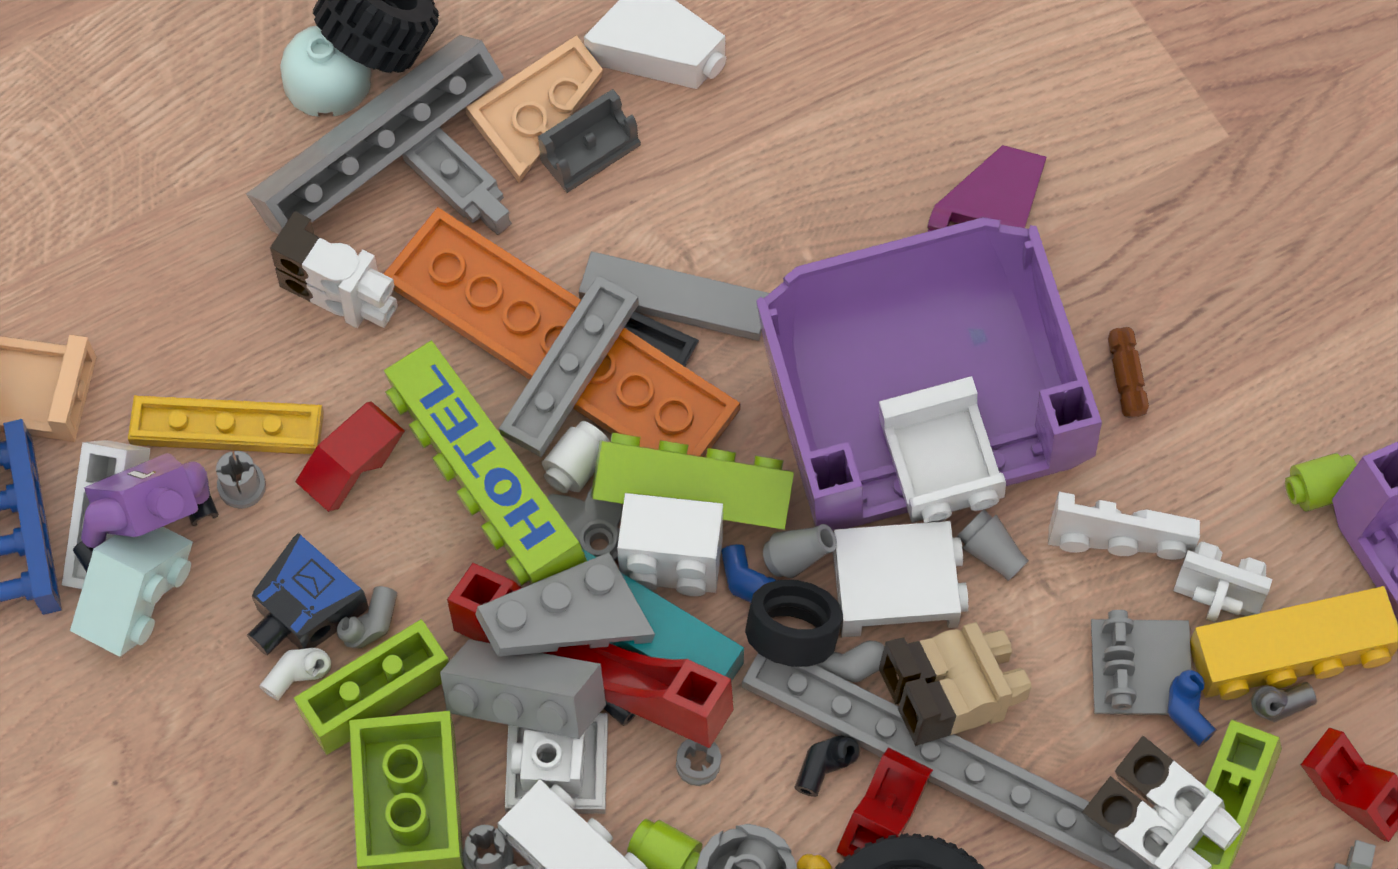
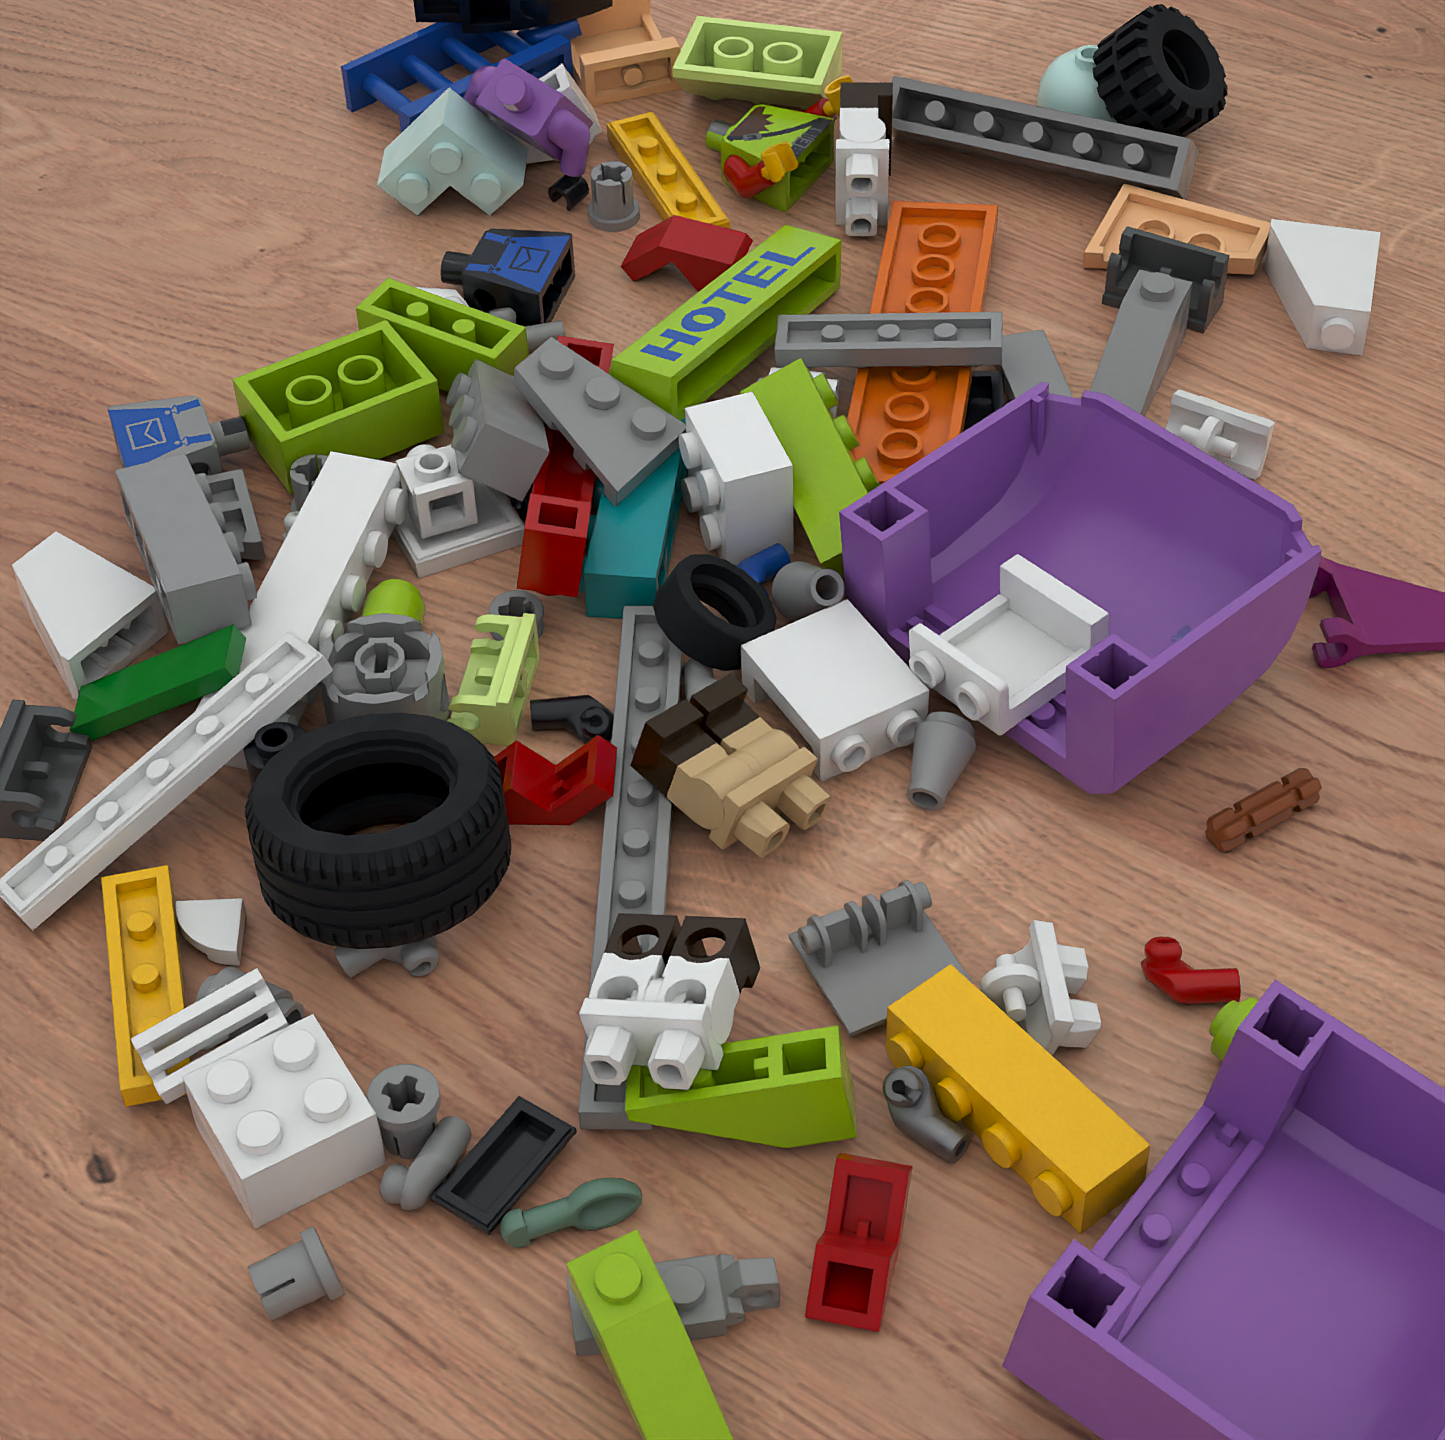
camera: 65 degrees right, 20 degrees down
(154, 288) = (758, 62): none -> yellowish green slope
(260, 327) = (778, 150): none -> torso
(459, 180) = (1044, 217): light grey hinge -> none
(658, 203) = (1144, 339): none -> light grey slope
(759, 796) = (497, 679): none -> yellowish green hinge
(775, 203) = (1222, 431): none -> white hips
(1105, 527) = (1021, 830): white wing -> none
(1184, 707) = (856, 1005): blue arm -> none
(1243, 497) = (1181, 981): none -> red arm

